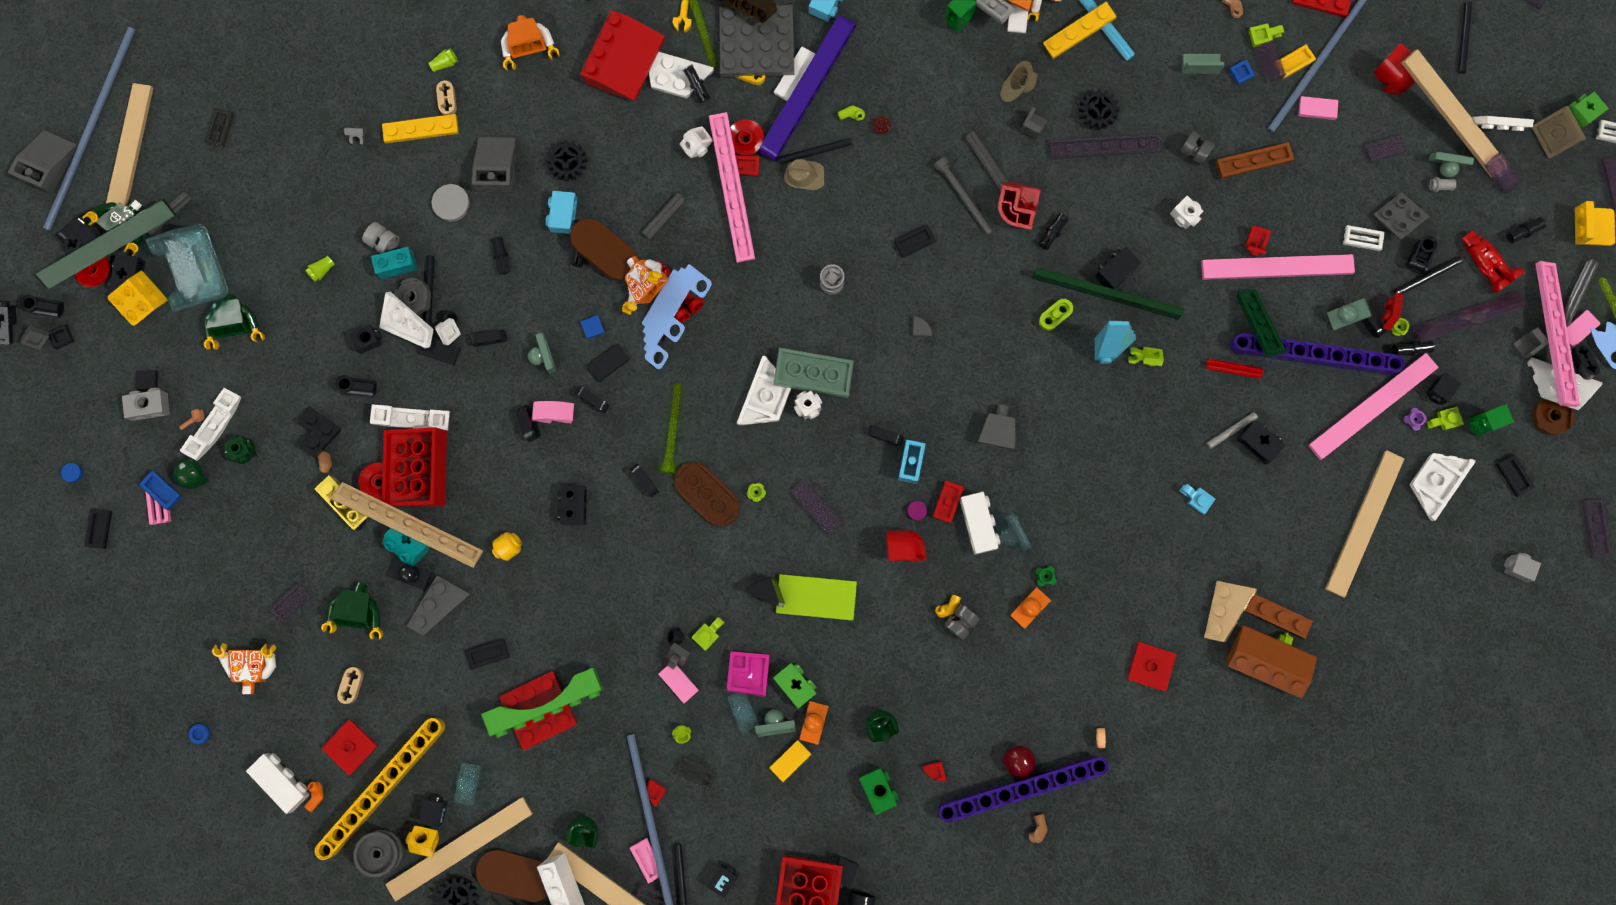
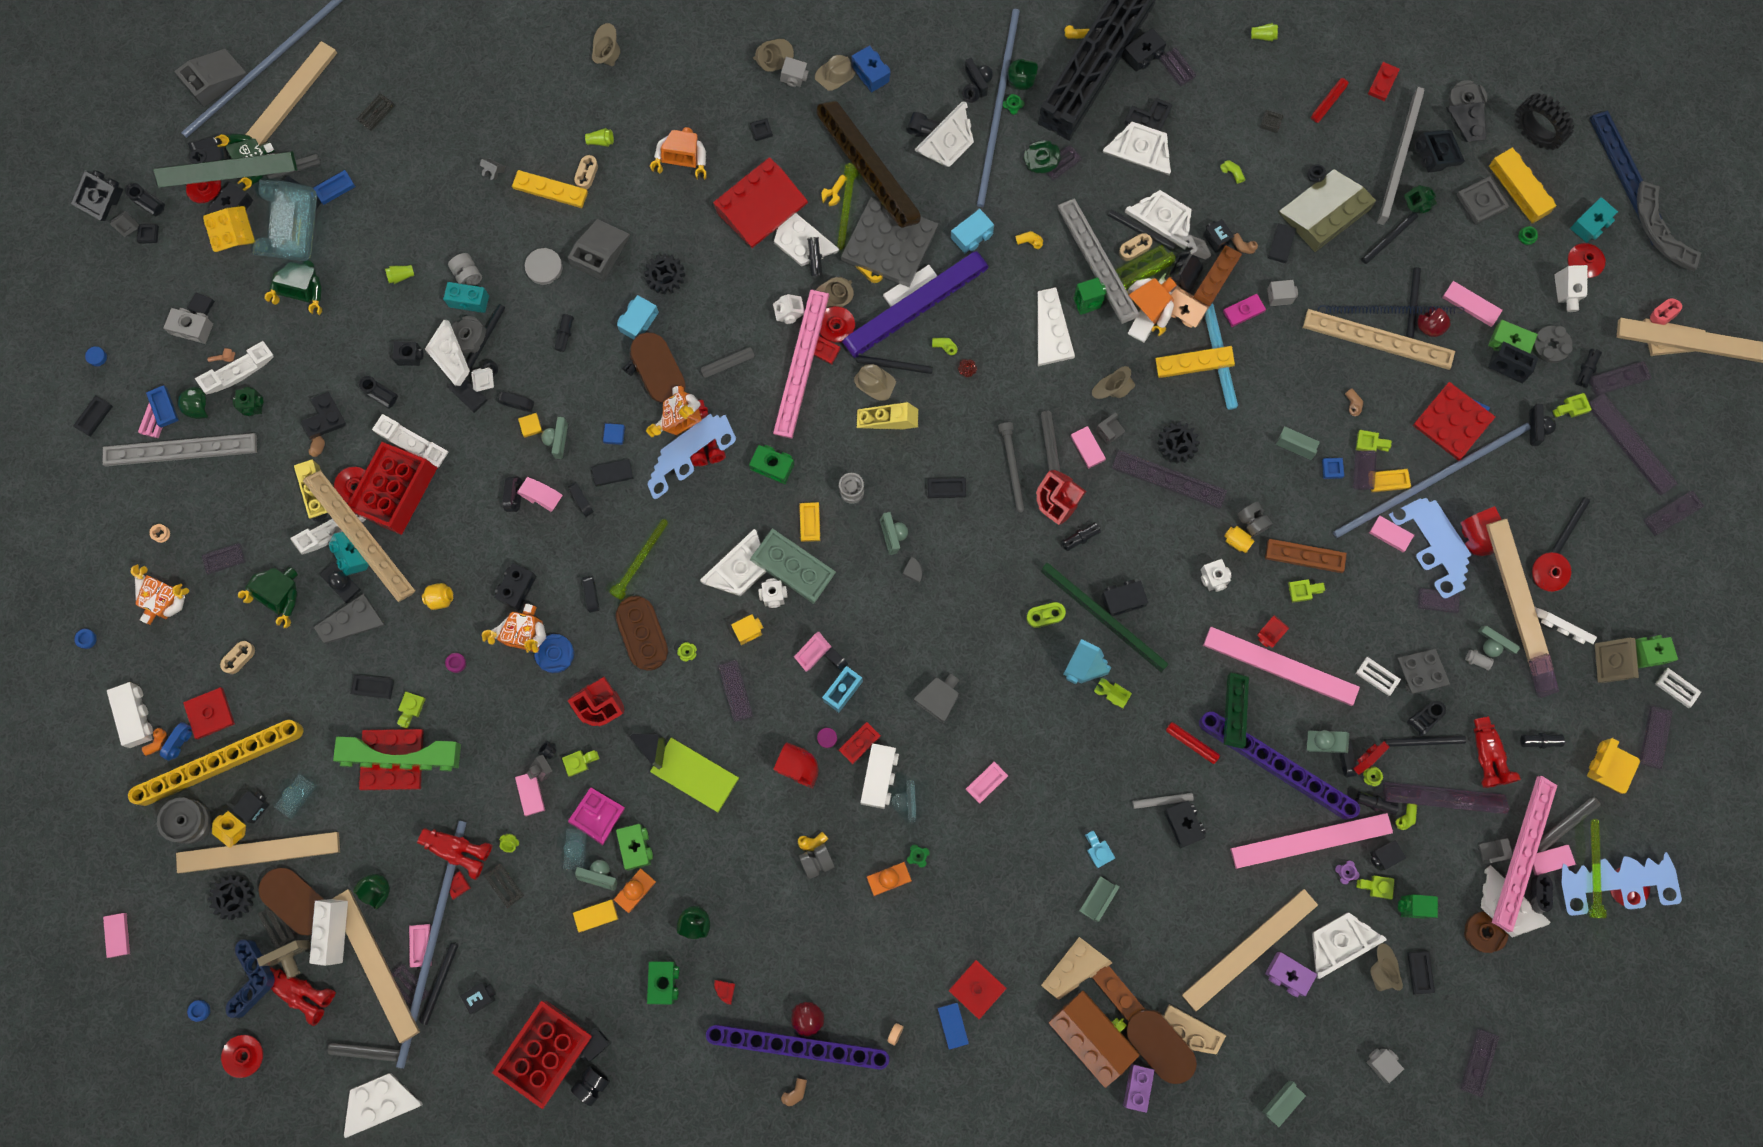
camera: 25 degrees right, 5 degrees down
(196, 522) = (180, 449): none -> light grey tile
(213, 604) = (156, 529): none -> light nougat bush
(217, 215) = (334, 187): none -> blue tile
(332, 793) = (171, 748): none -> blue plate
(370, 542) = (318, 537): none -> white slope
(512, 353) = (530, 425): none -> yellow tile
(532, 655) = (410, 706): none -> lime plate
(552, 598) = (455, 662): none -> magenta tile
(598, 543) = (519, 631): none -> torso
(633, 763) = (450, 849): none -> red piece
(637, 548) = (558, 657): none -> blue tile
(700, 575) = (597, 703): none -> red brick
(735, 105) = (839, 291): none -> dark tan piece
(758, 296) = (778, 472): none -> green brick
(800, 447) = (747, 629): none -> yellow brick
(808, 326) = (809, 522): none -> yellow tile
(832, 201) = (888, 417): none -> light yellow slope
(868, 440) = (812, 651): none -> bright pink tile
(887, 303) = (892, 532): none -> sand green tile
(942, 61) = (1053, 335): none -> white wing
(1021, 149) = (1088, 447): none -> bright pink tile
(1074, 485) = (986, 782): none -> bright pink tile
(1145, 707) = (953, 1026): none -> blue tile
(1191, 171) = (1239, 539): none -> yellow brick
(1219, 540) = (1099, 899): none -> sand green panel
(1267, 192) = (1303, 590): none -> lime plate
(1328, 685) = (1138, 1088): none -> medium lavender brick
(1330, 640) = (1161, 1046): none -> reddish brown tile
(1343, 618) = (1194, 1032): none -> tan wing
(1367, 94) = (1444, 541): none -> light blue piece
(1421, 528) = (1302, 976): none -> medium lavender brick
(1445, 350) = (1408, 819): none -> lime arm
(1453, 639) = (1283, 1103): none -> sand green panel
(1461, 82) = (1543, 569): none -> red dish
(1486, 488) = (1386, 970): none -> dark tan piece

